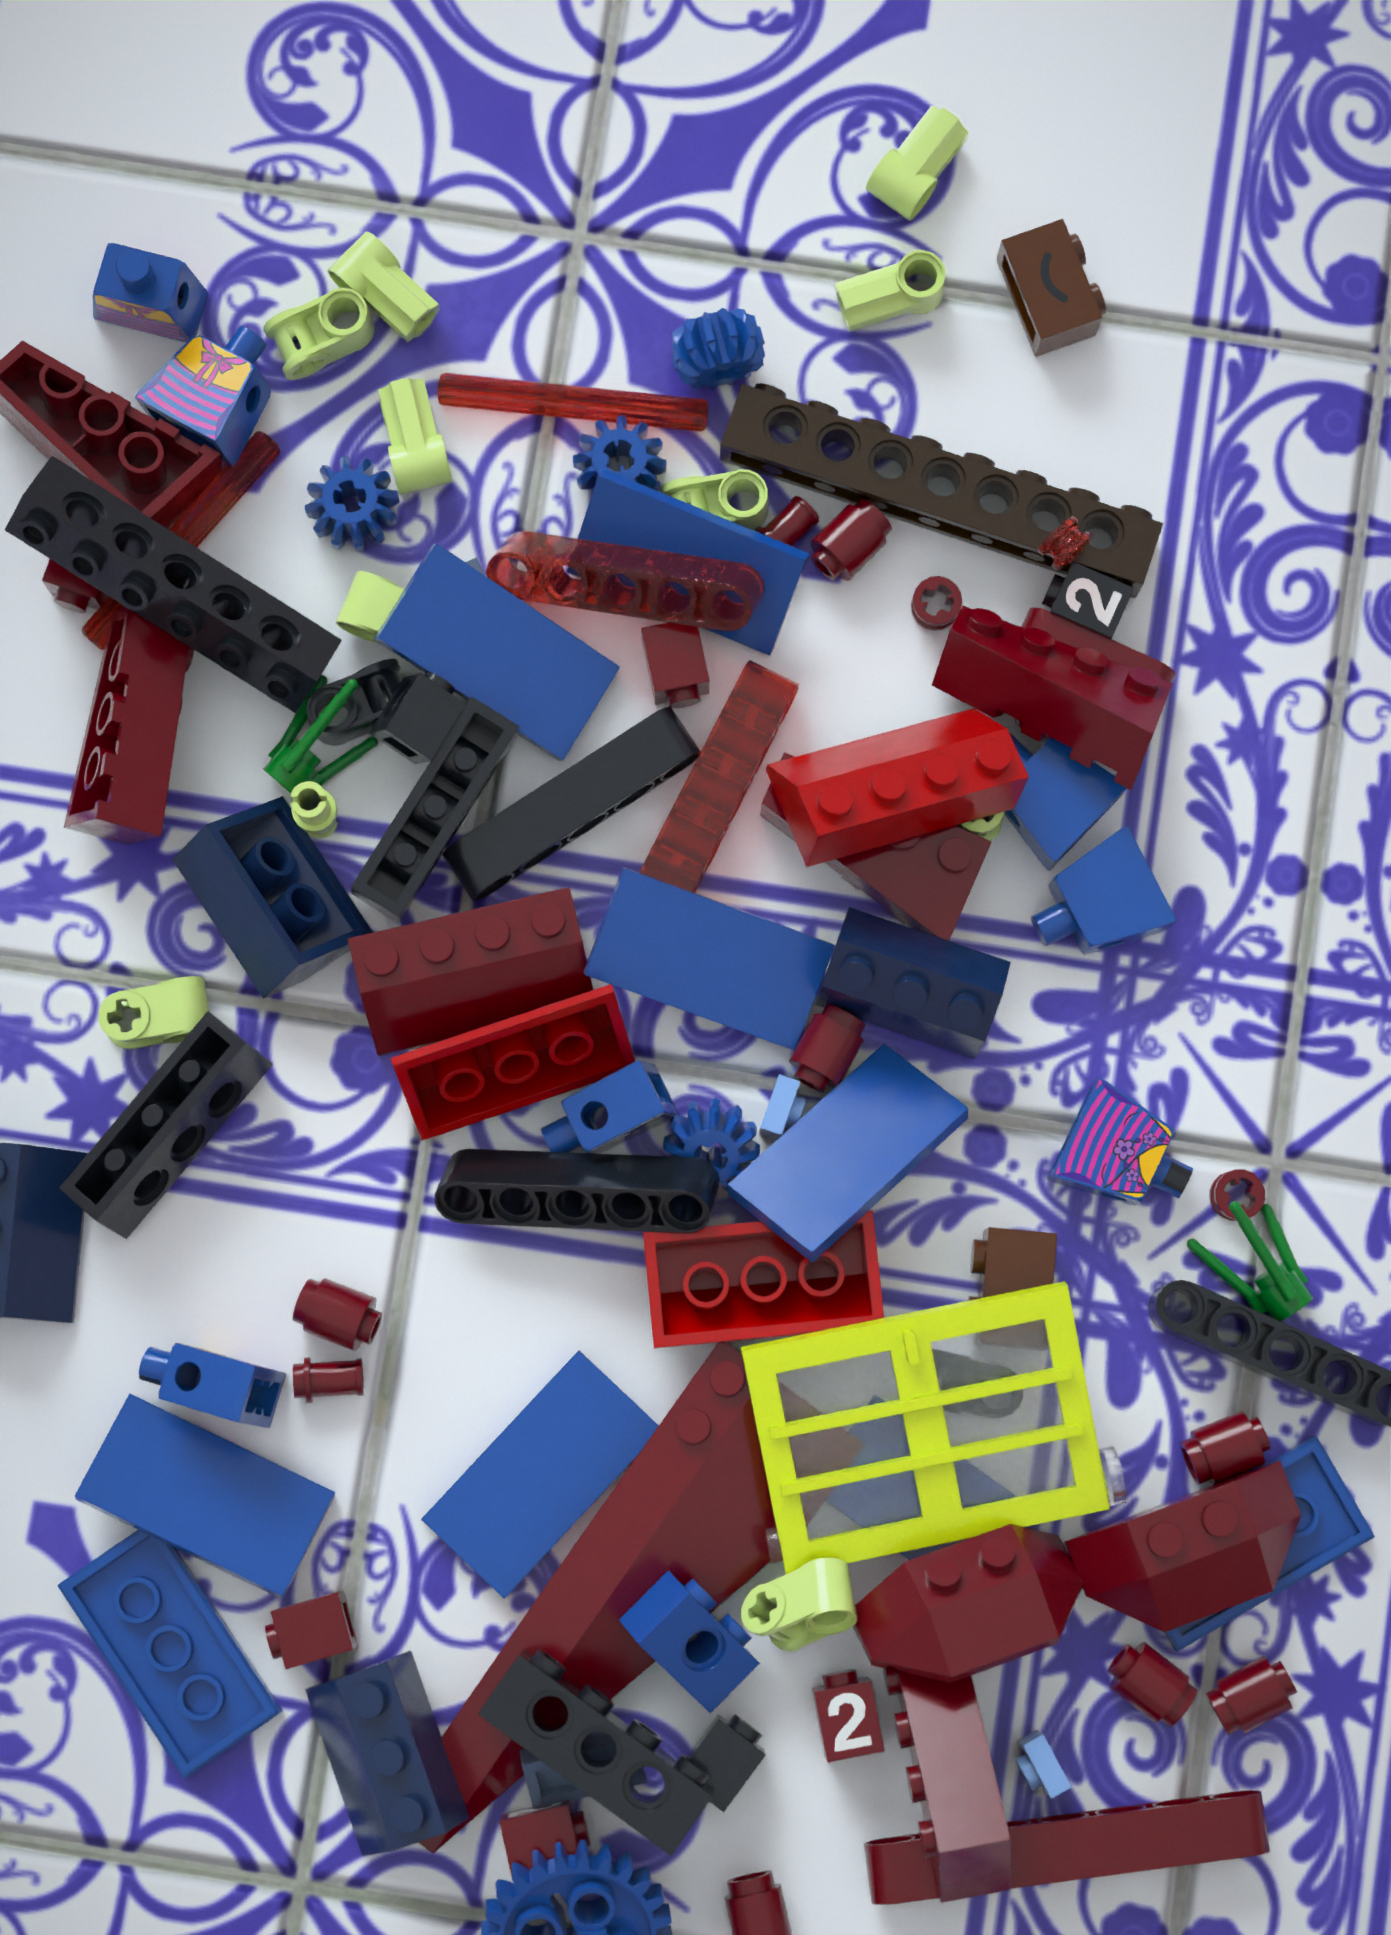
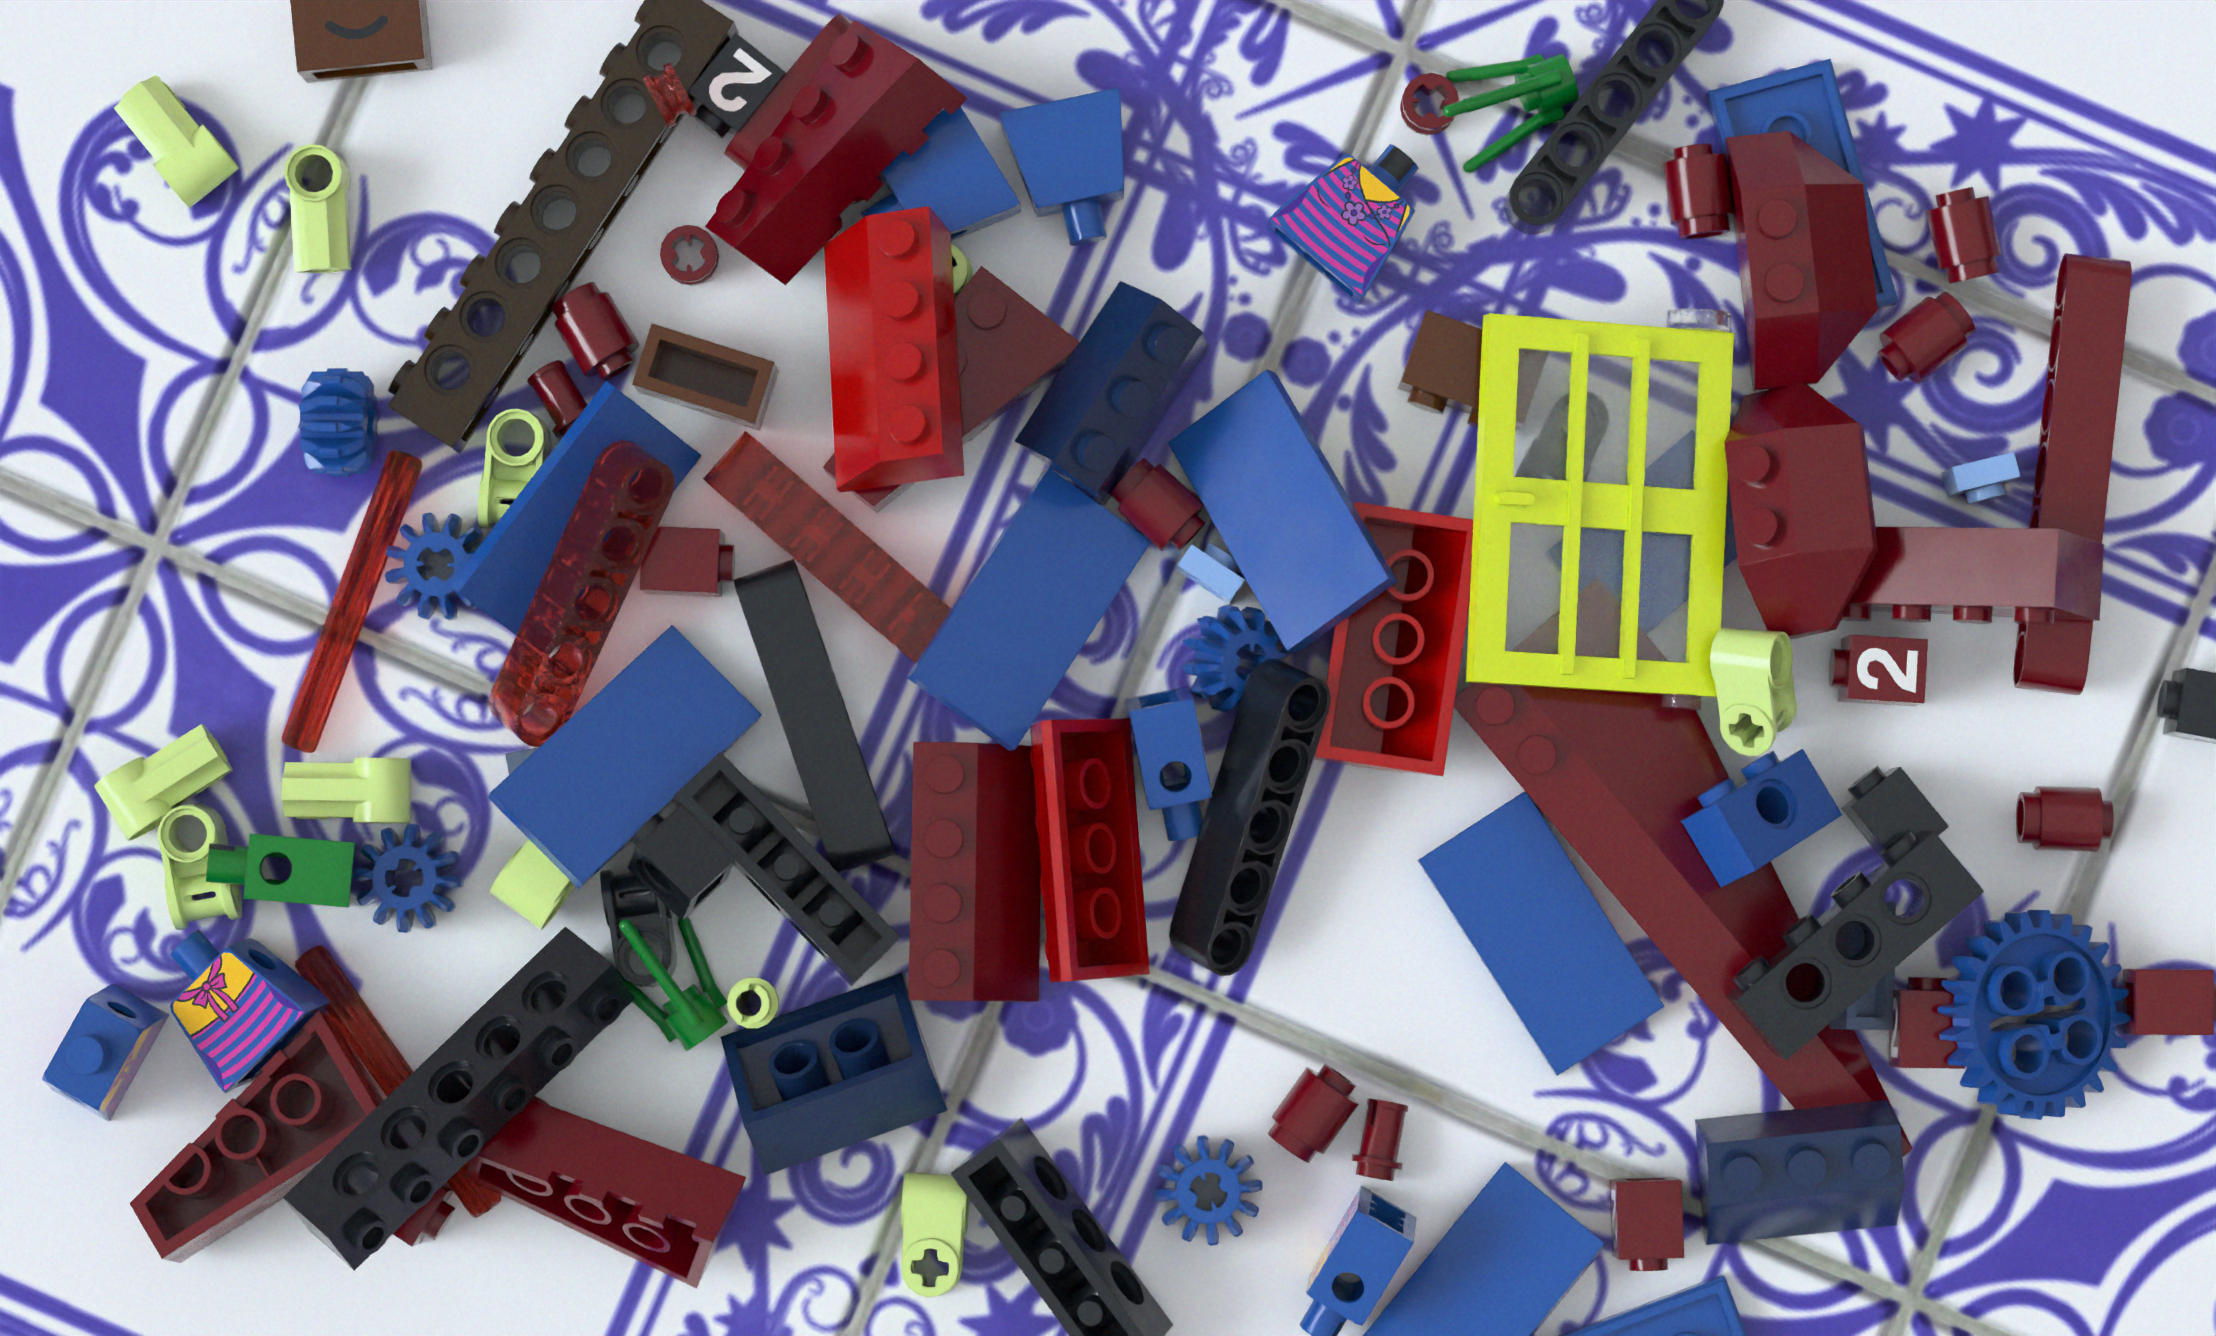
camera: 75 degrees left, 5 degrees up
(257, 1256) = (1188, 1197): none -> blue gear
(336, 422) = (318, 874): none -> green torso
(835, 638) = (705, 377): none -> reddish brown brick

